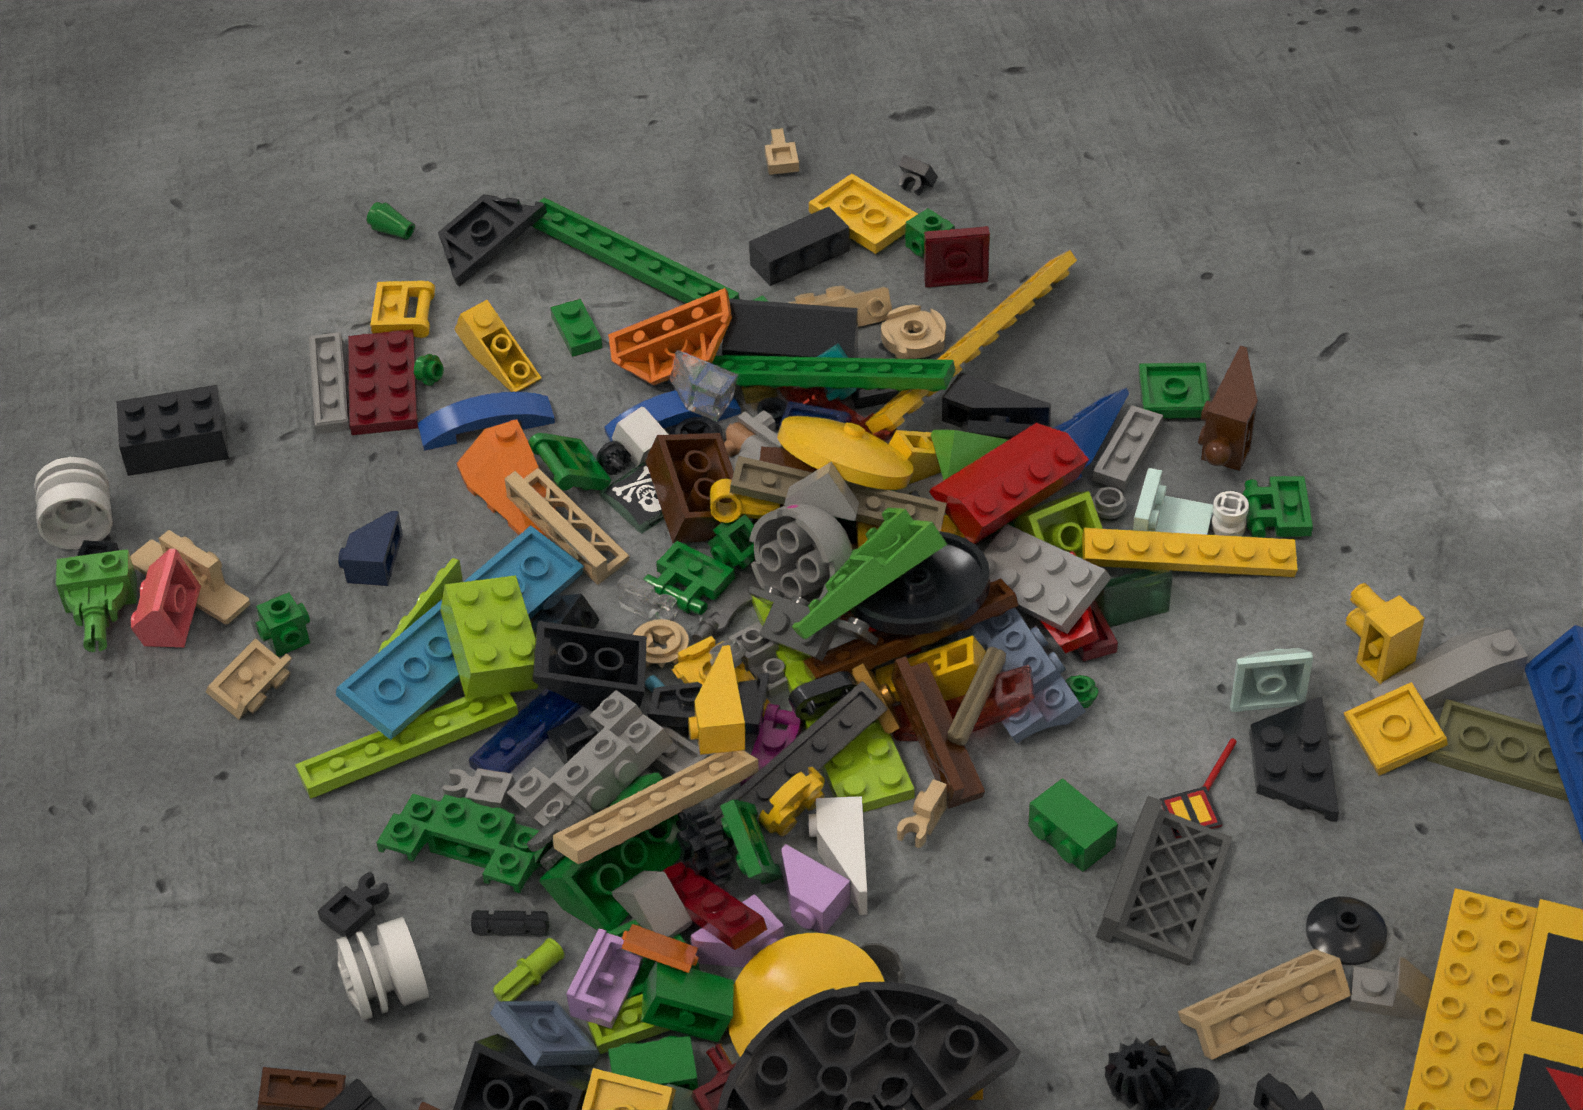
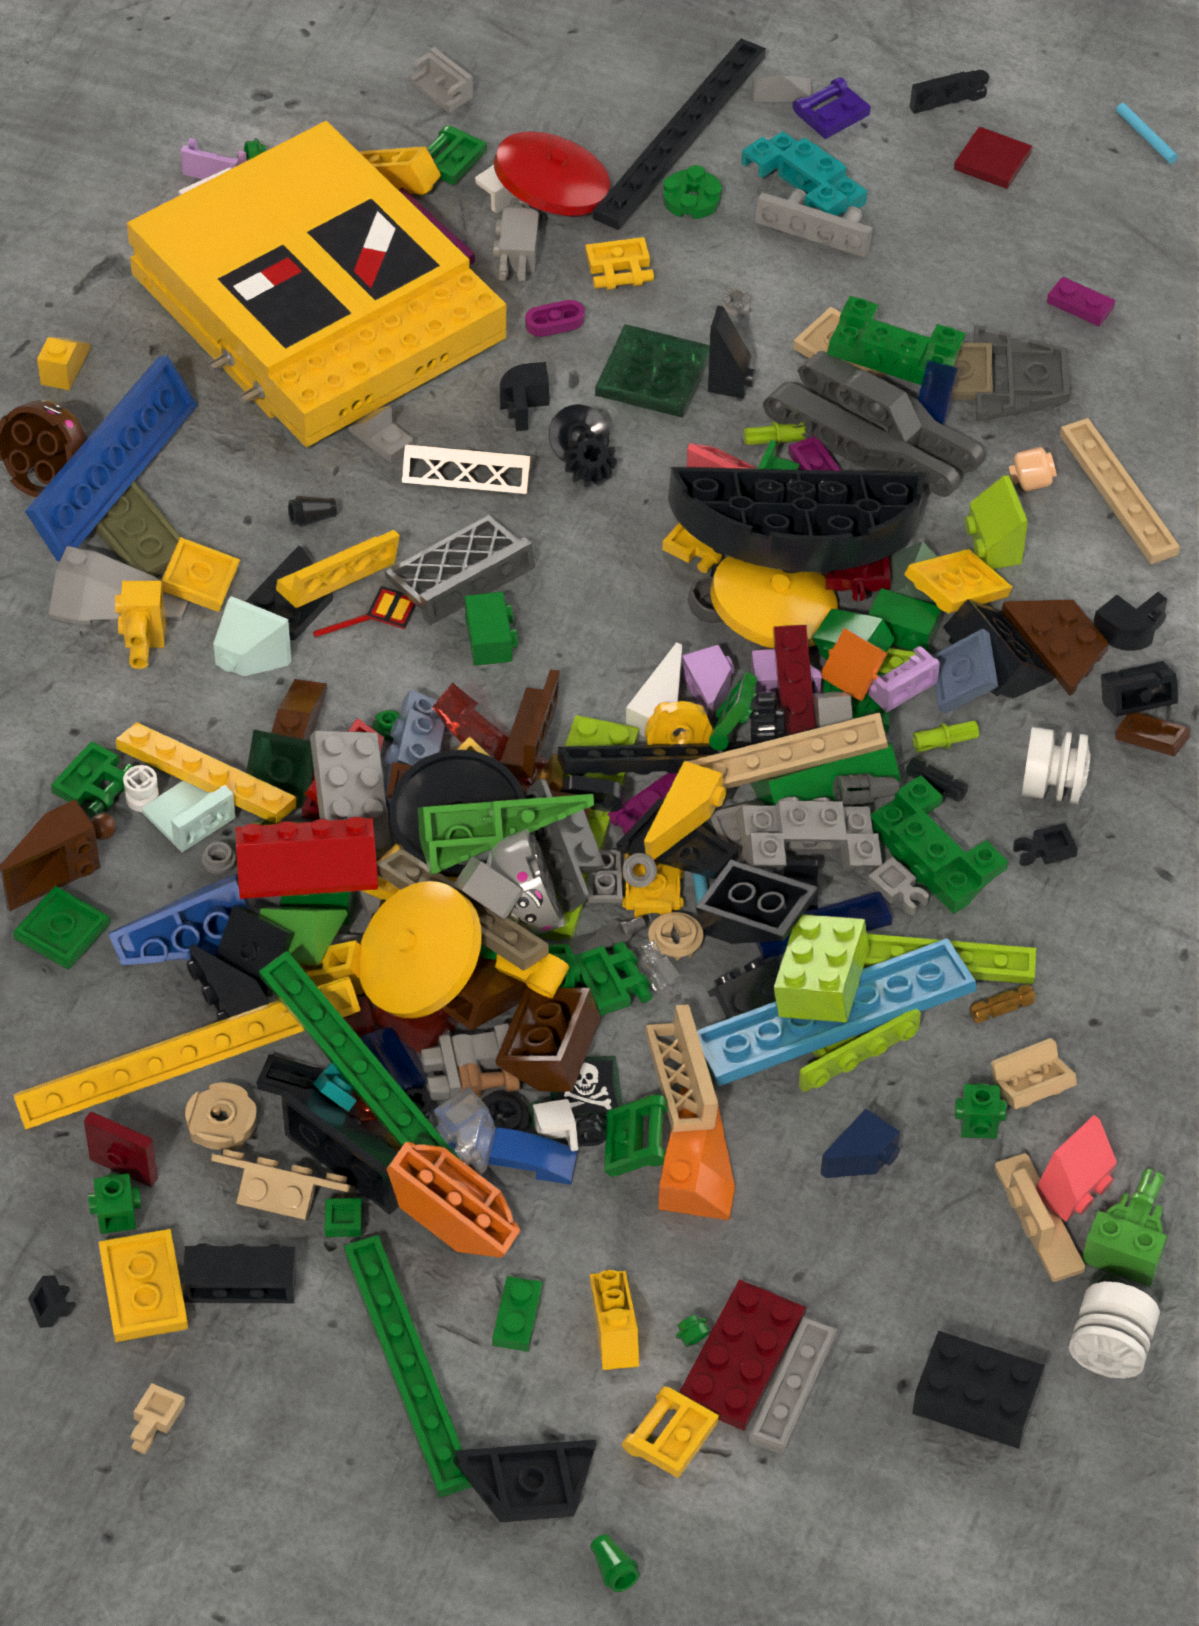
camera: 150 degrees left, 5 degrees up
(318, 736) = (1002, 1003): none -> pearl gold axle
(483, 412) = (674, 1243): blue slope -> none
(928, 809) = (580, 689): tan plate -> none
(976, 696) = (484, 722): dark tan axle -> none
(1127, 447) = (153, 893): light grey plate -> none
(1163, 646) = (300, 709): none -> reddish brown slope
(1269, 794) = (339, 569): none -> yellow fence
(1350, 943) = (367, 487): black dish -> none
(1368, 853) = (309, 510): none -> black cone

